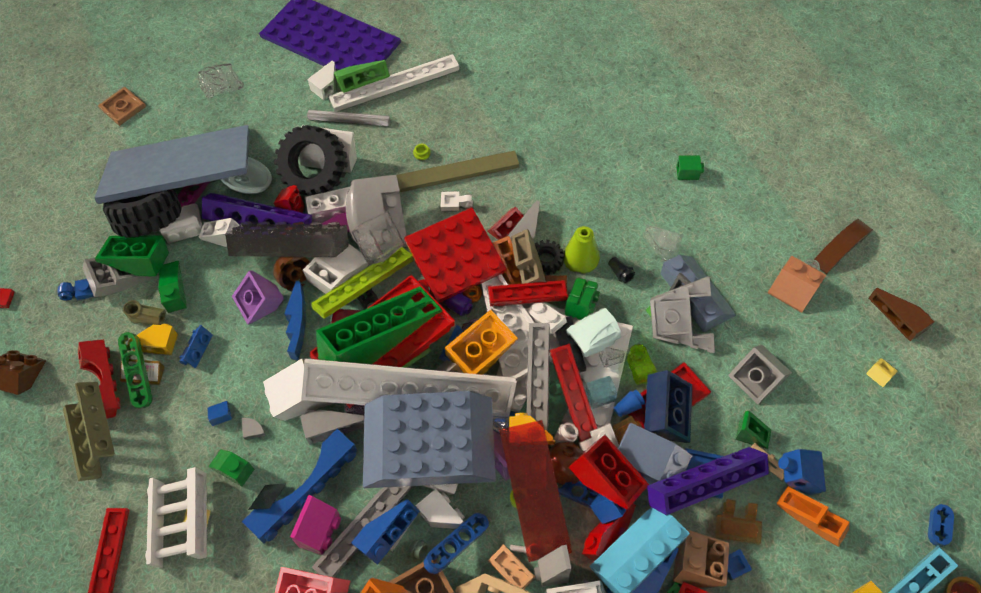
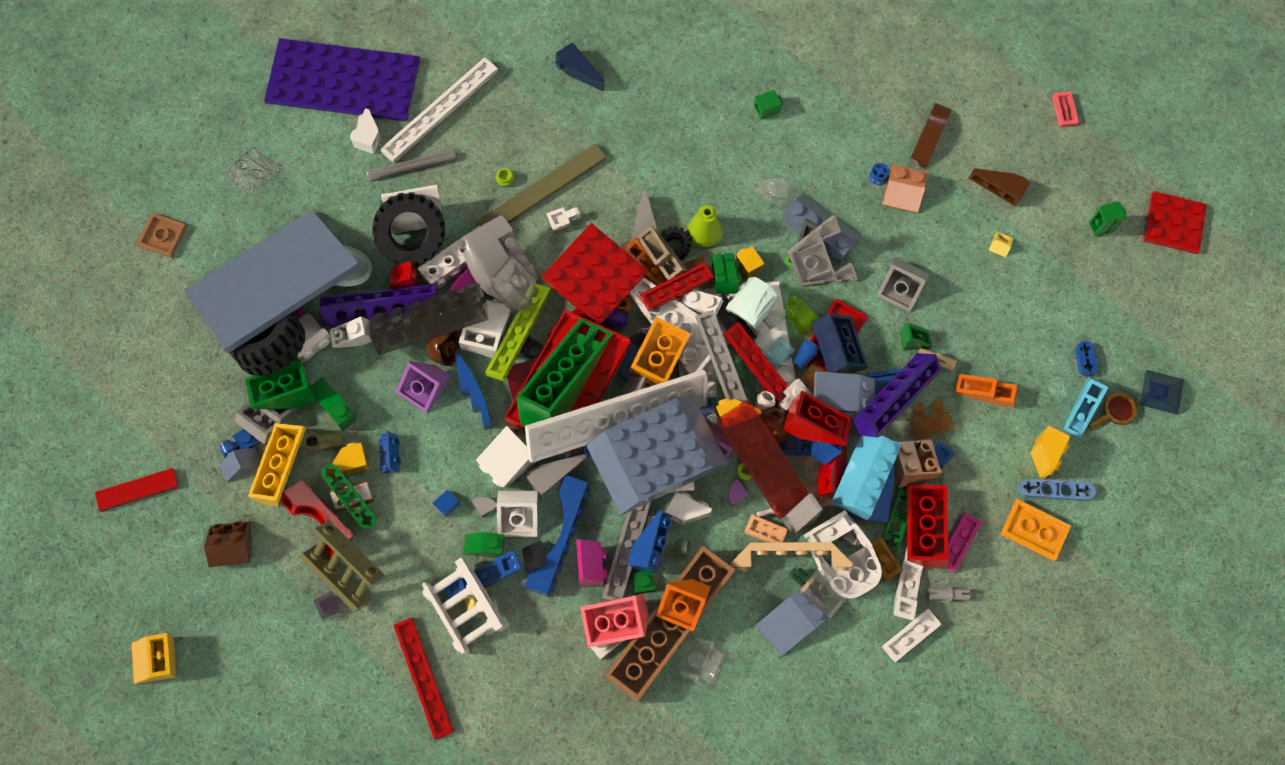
camera: 30 degrees left, 10 degrees up
(60, 463) = (327, 605): none -> plate
(69, 305) = (240, 462): none -> sand blue slope
(91, 317) = (276, 464): none -> yellow slope
(219, 496) = (489, 574): none -> blue slope
(275, 448) = (517, 513): none -> white slope
(361, 75) = (403, 115): bright green slope -> none
(362, 569) = (643, 582): none -> green plate
(458, 544) = (714, 527): blue beam -> none
(499, 516) = (737, 493): none -> medium lavender tile
(506, 223) = (622, 223): red slope -> none
(528, 85) = (577, 66): none -> dark blue slope
(611, 297) = (749, 262): none -> yellow brick
(622, 270) = (747, 231): black cone -> none
(775, 258) = (879, 169): none -> blue wheel
(804, 471) = (968, 356): blue torso -> none

